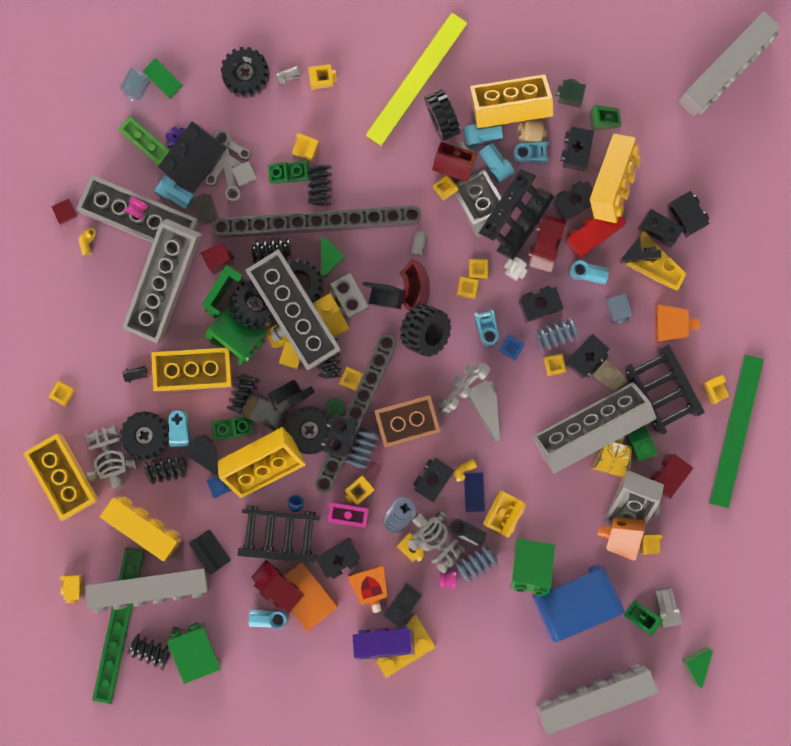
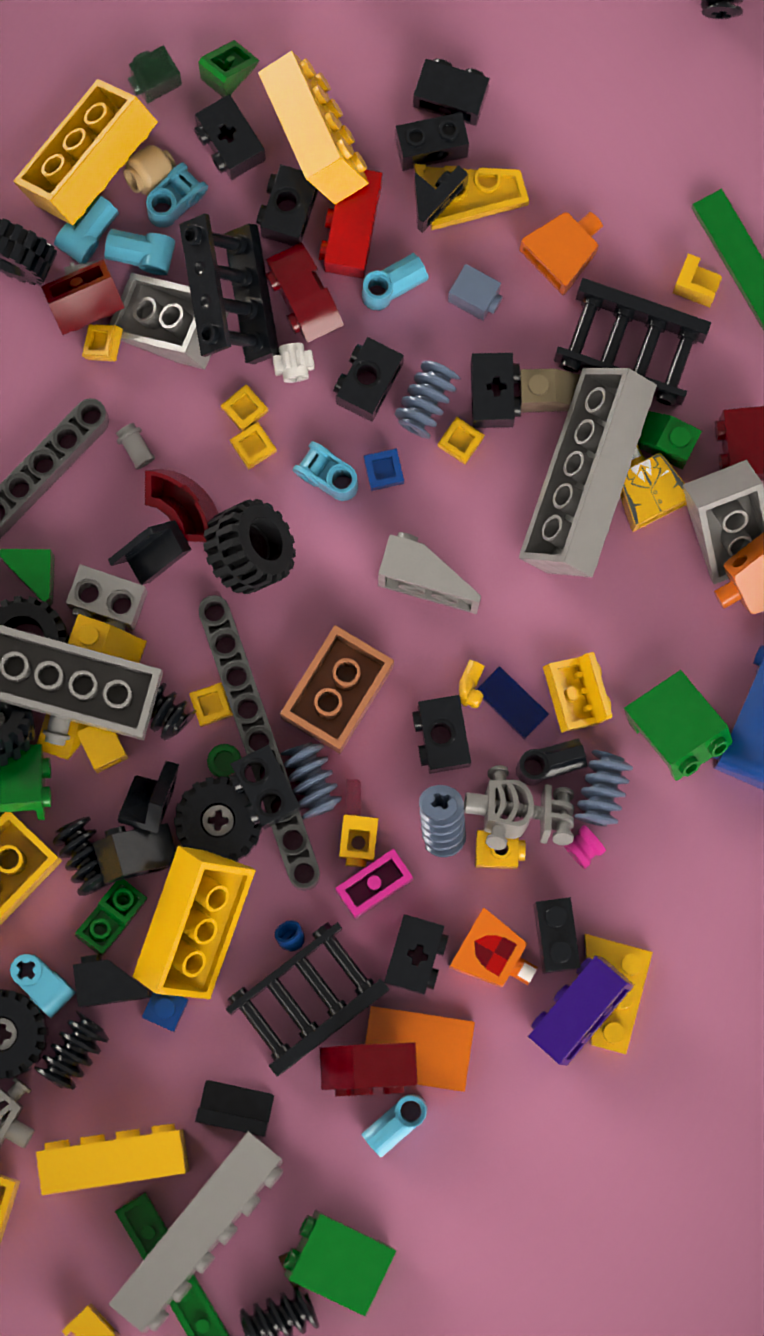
camera: 45 degrees left, 5 degrees down
(461, 386) = (367, 577): light grey plant -> none

